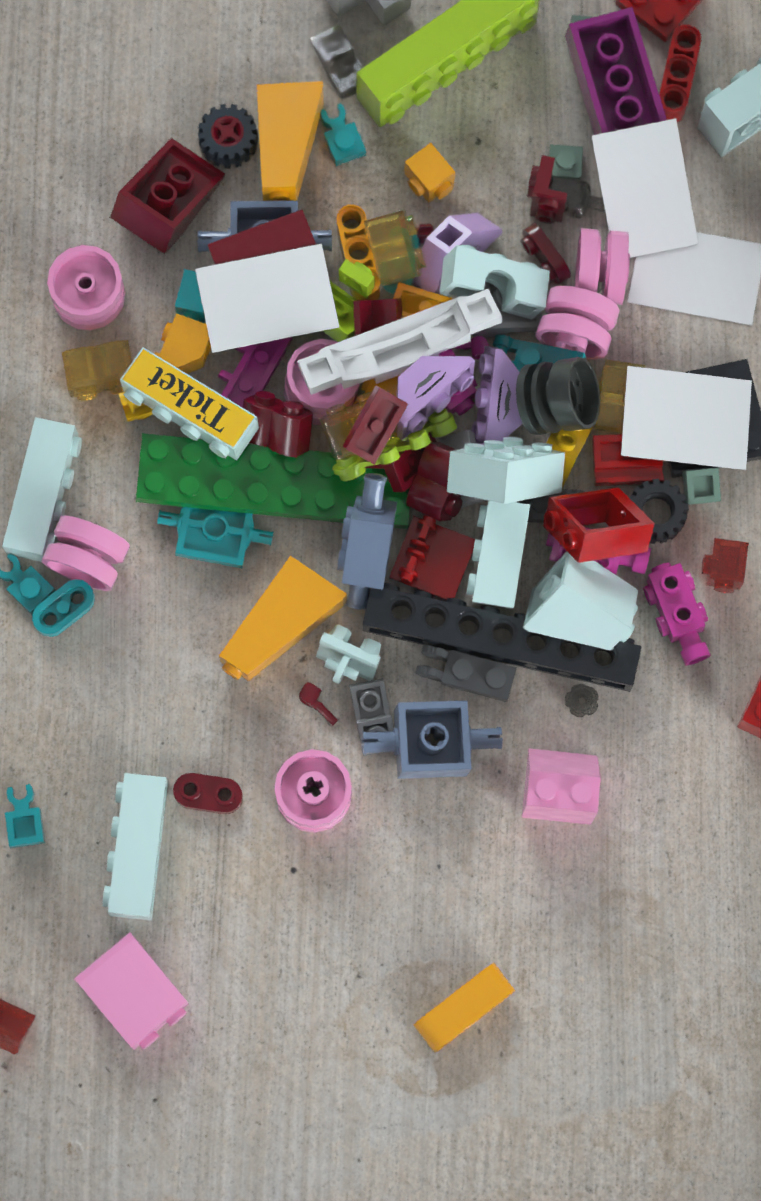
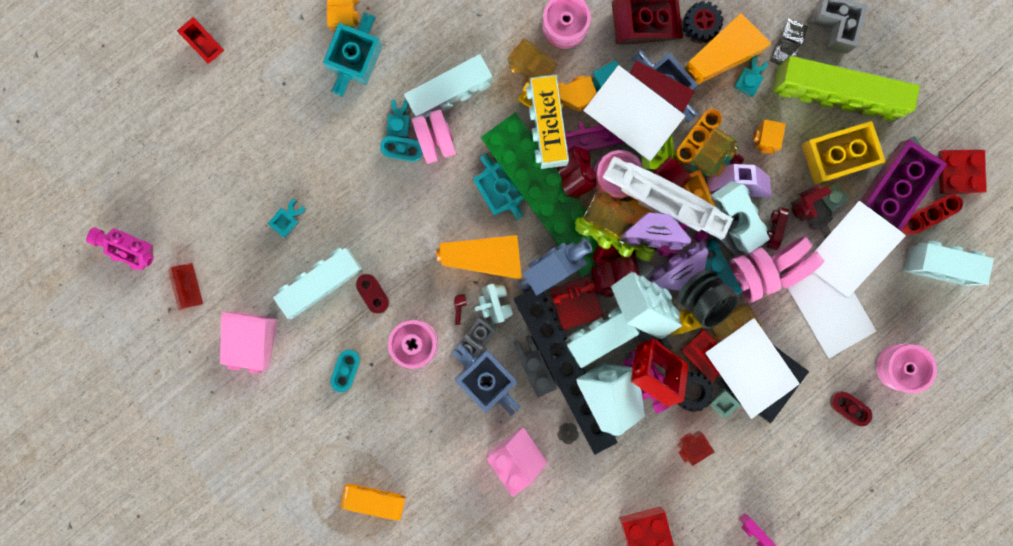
camera: 55 degrees right, 10 degrees up
(273, 906) = (345, 370): none -> teal plate
(357, 277) = (684, 147): lime plate -> none
(375, 425) = (612, 223): dark red panel -> none
(521, 108) = (843, 152): none -> yellow brick
(672, 601) = (652, 438): dark pink brick -> none

